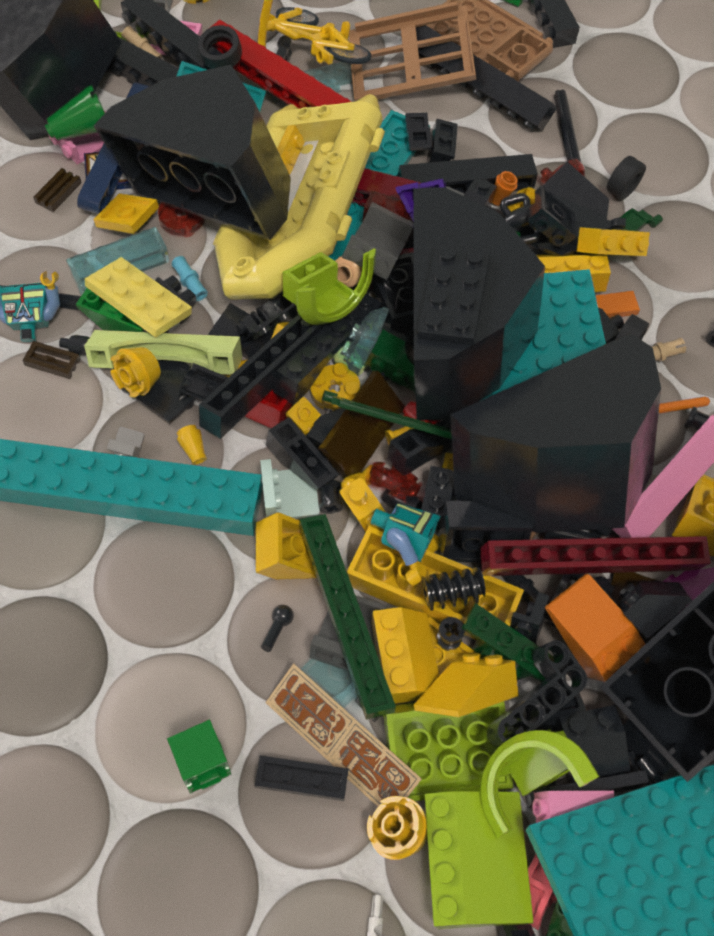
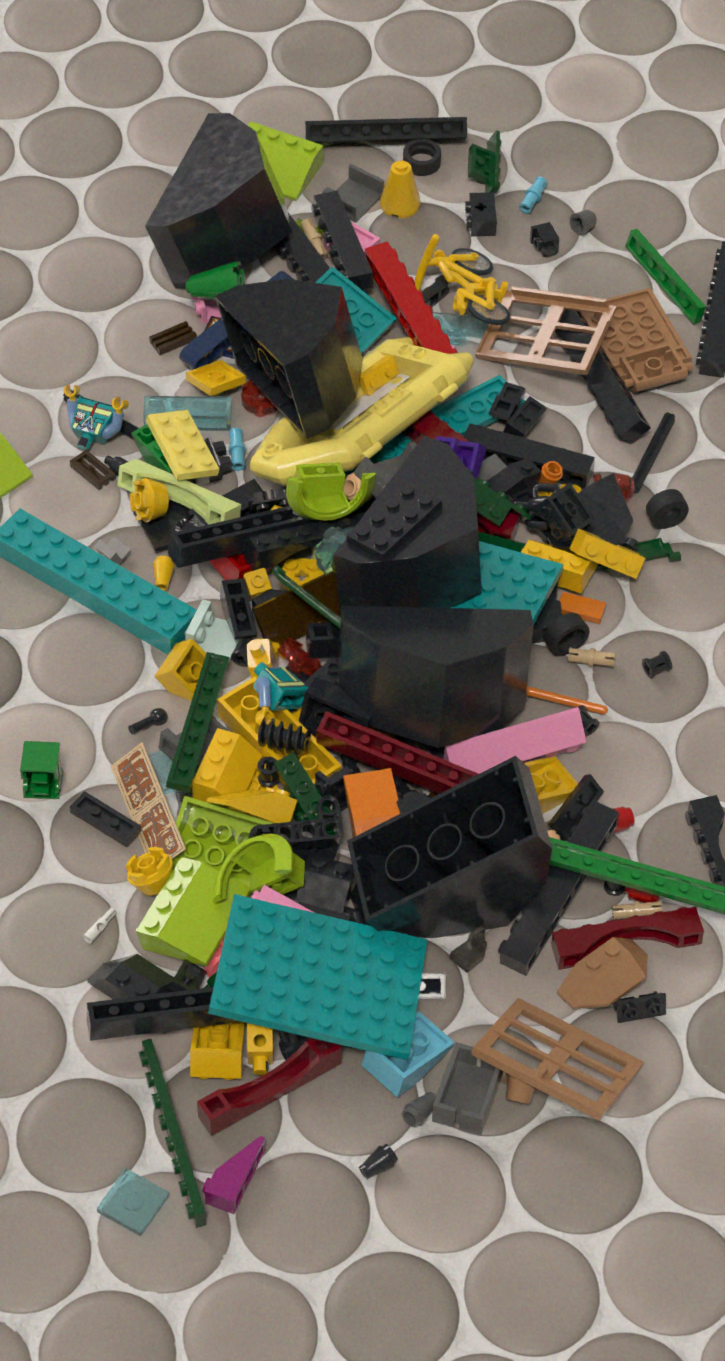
camera: 30 degrees right, 10 degrees down
(217, 34) = (369, 279): black tyre -> none

